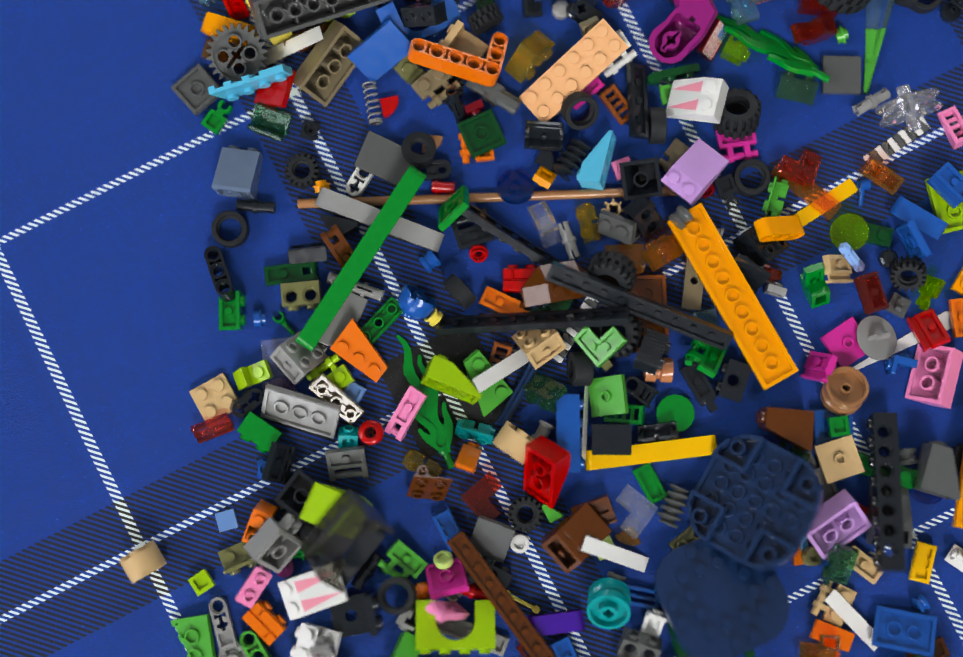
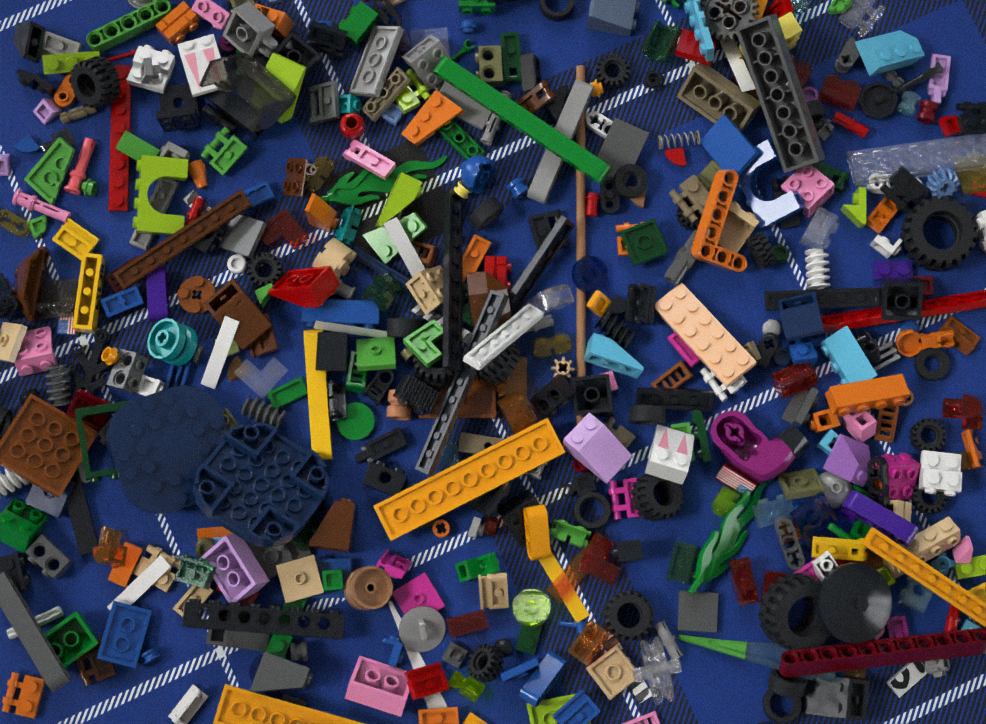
camera: 85 degrees right, 5 degrees down
(252, 375) = (414, 19): lime slope -> none
(255, 206) = (579, 26): black pin -> none
(412, 595) = (198, 154): black tyre -> none
(424, 14) = (764, 187): black brick -> none
(443, 559) = (225, 189): yellowish green tile -> none
(446, 581) = (206, 189): dark pink plate -> none
(447, 611) = (175, 187): bright pink plate -> none
(453, 207) = (568, 209): green plate -> none
(456, 105) = (672, 218): black pin -> none
(474, 108) = (670, 237): dark red plate -> none
(478, 257) = (524, 236): red plate -> none
(529, 55) = (722, 292): clear yellow brick -> none
(535, 609) = (172, 277): light yellow hinge -> none
(553, 593) = (186, 291): none -> dark orange plate
(589, 119) = (677, 338): black tyre -> none
(594, 265) = (503, 336): none -> white tile
(617, 227) = (542, 370): dark grey bracket -> none
(680, 217) = (549, 427): dark grey wheel -> none
(708, 361) = (405, 455): green plate -> none
(782, 322) = (435, 530): none -> orange bush
(792, 140) = (627, 552): none -> black brick
(842, 35) = (739, 613): bright green plate -> none
(851, 257) = (505, 606): light blue axle -> none
(863, 128) = (640, 603): none -> black tyre
(905, 153) = (612, 672): none -> tan plate
(922, 562) = (191, 660): yellow plate -> none

